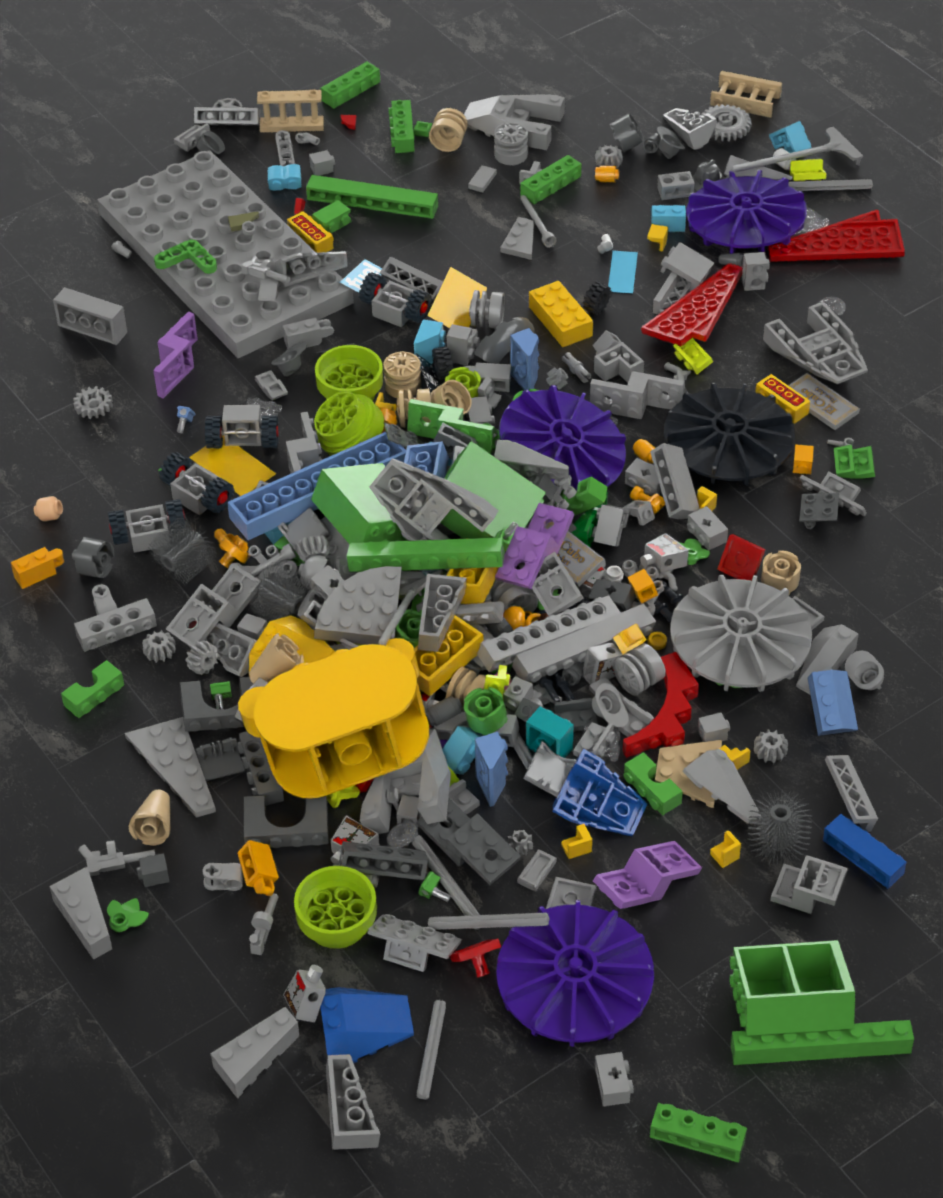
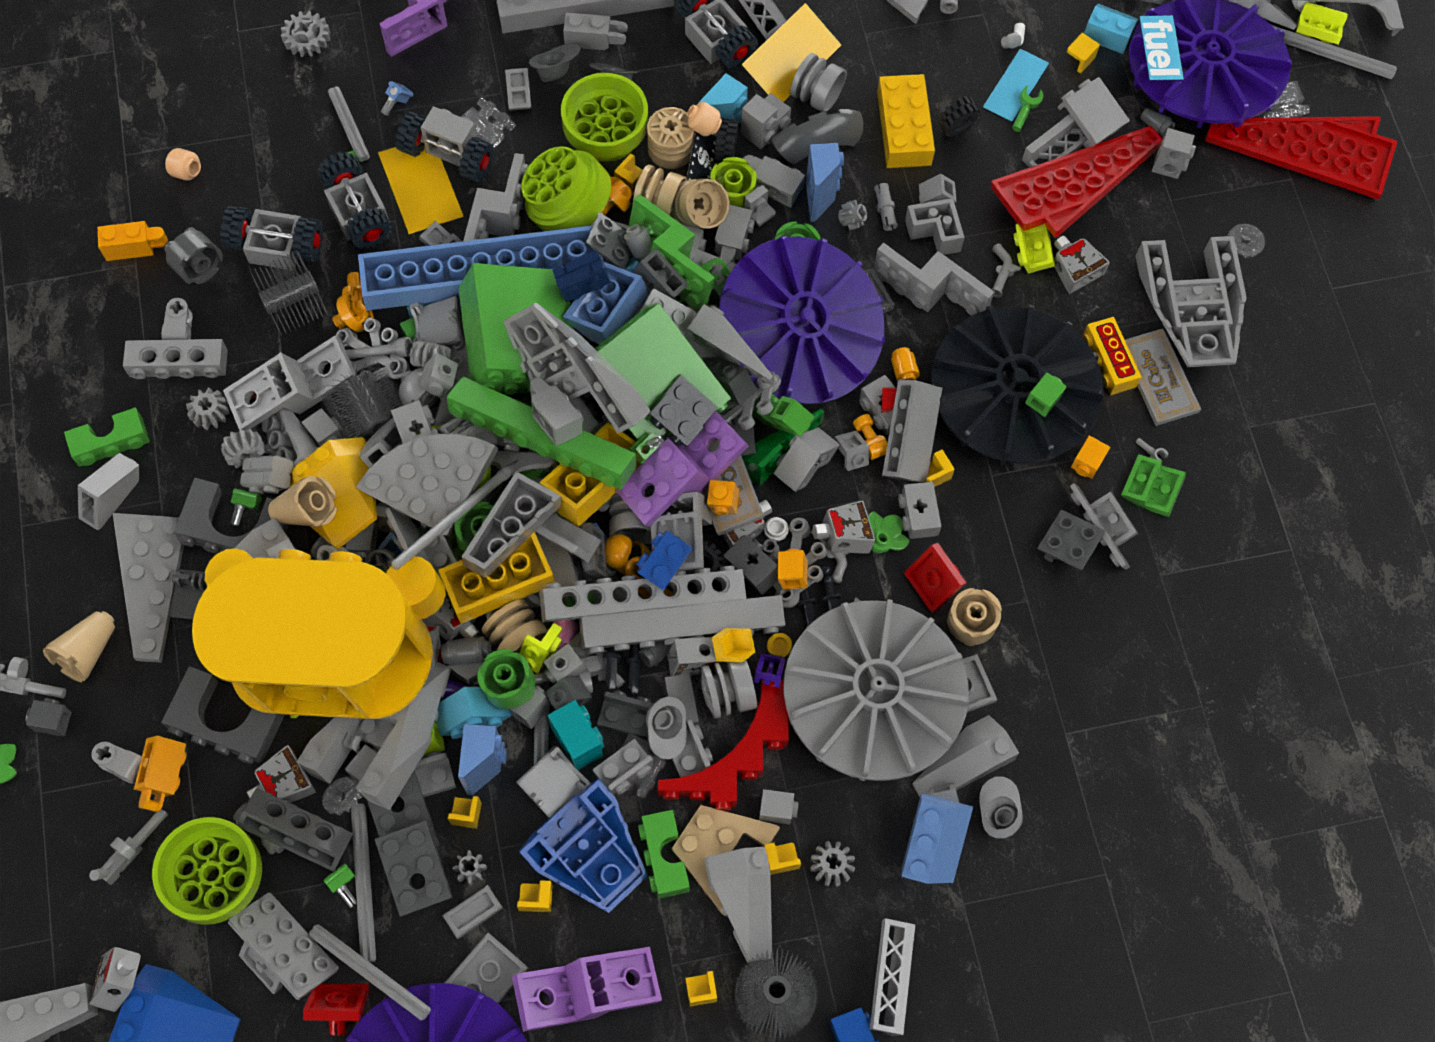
camera: 20 degrees right, 20 degrees up
(113, 720) = (106, 490): none -> light grey slope
(152, 442) = (348, 124): none -> light grey axle
(231, 663) = (266, 474): none -> light grey brick
(330, 551) = (438, 375): none -> light grey brick
(403, 450) = (581, 276): none -> dark blue brick
(423, 349) = (704, 119): none -> light nougat head
(423, 431) = (638, 241): none -> light grey brick
(432, 533) = (554, 412): none -> light grey hinge
(497, 814) = (465, 812): none -> yellow panel
(517, 507) = (681, 411): none -> plate
(554, 599) = (663, 559): none -> blue bracket
(571, 555) = (723, 497): none -> light orange brick
(638, 279) = (1028, 103): none -> bright green piece
(648, 468) = (888, 399): none -> red tile
(663, 650) = (769, 676): none -> dark purple tile
(712, 211) = (1161, 48): none -> sticker
(728, 355) = (1078, 263): none -> light grey torso
(754, 424) = (1046, 394): none -> bright green brick

